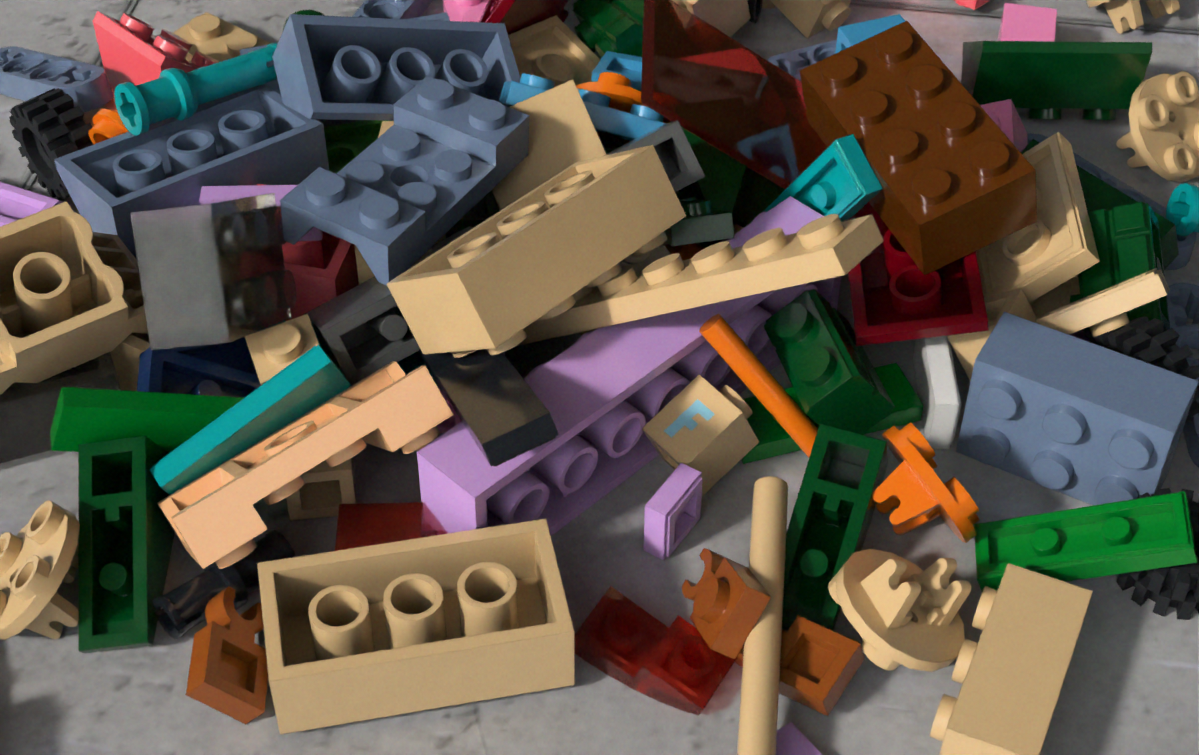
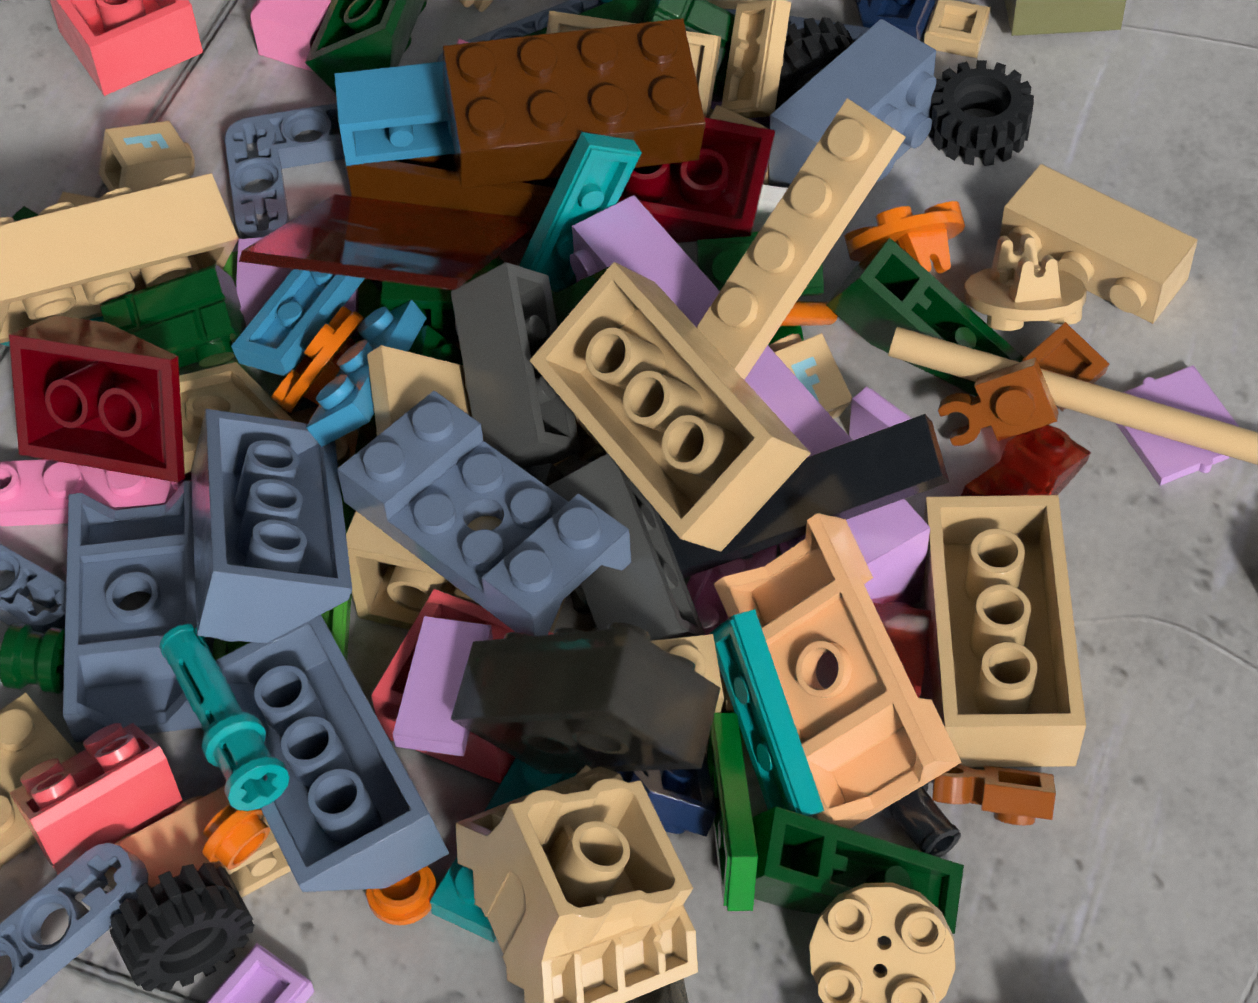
camera: 75 degrees left, 10 degrees up
(1089, 540) = (981, 153): green tile -> none

